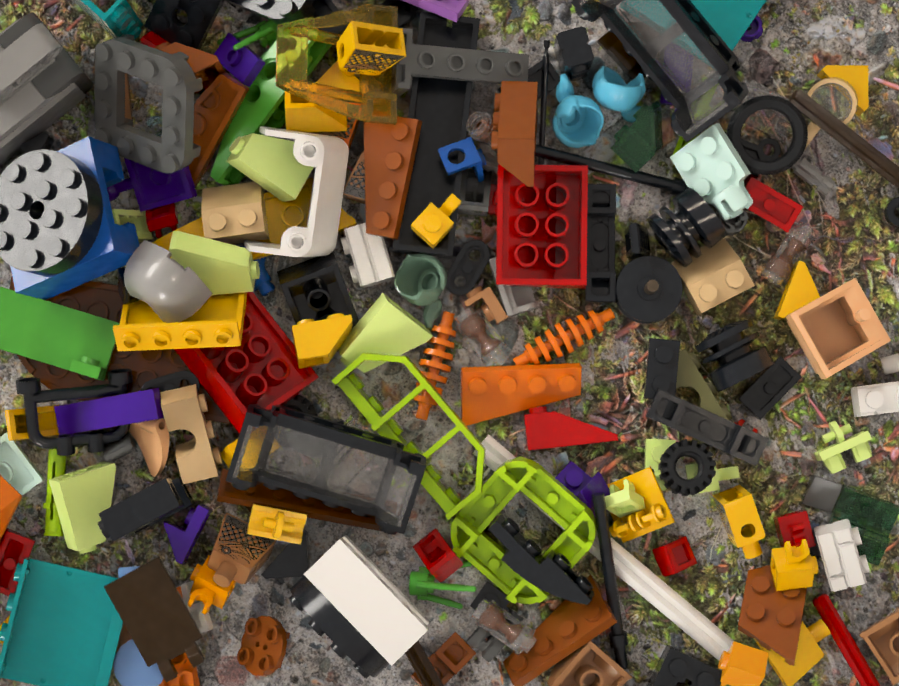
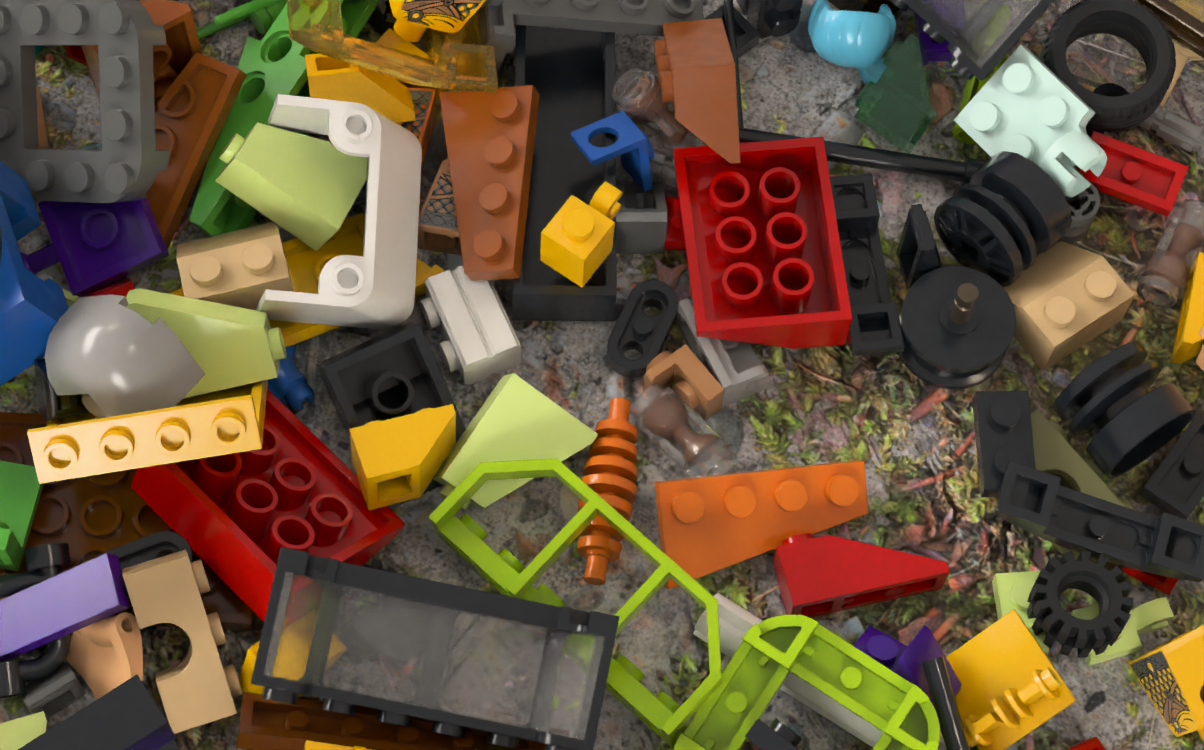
camera: 10 degrees left, 20 degrees down
(241, 63) = (232, 42): dark purple plate -> none
(421, 283) = (567, 354): sand green hair -> none
(563, 338) = (826, 421): orange piece -> none
(577, 117) = (791, 78): medium azure hair -> none
(624, 501) = (979, 675): yellowish green tile -> none

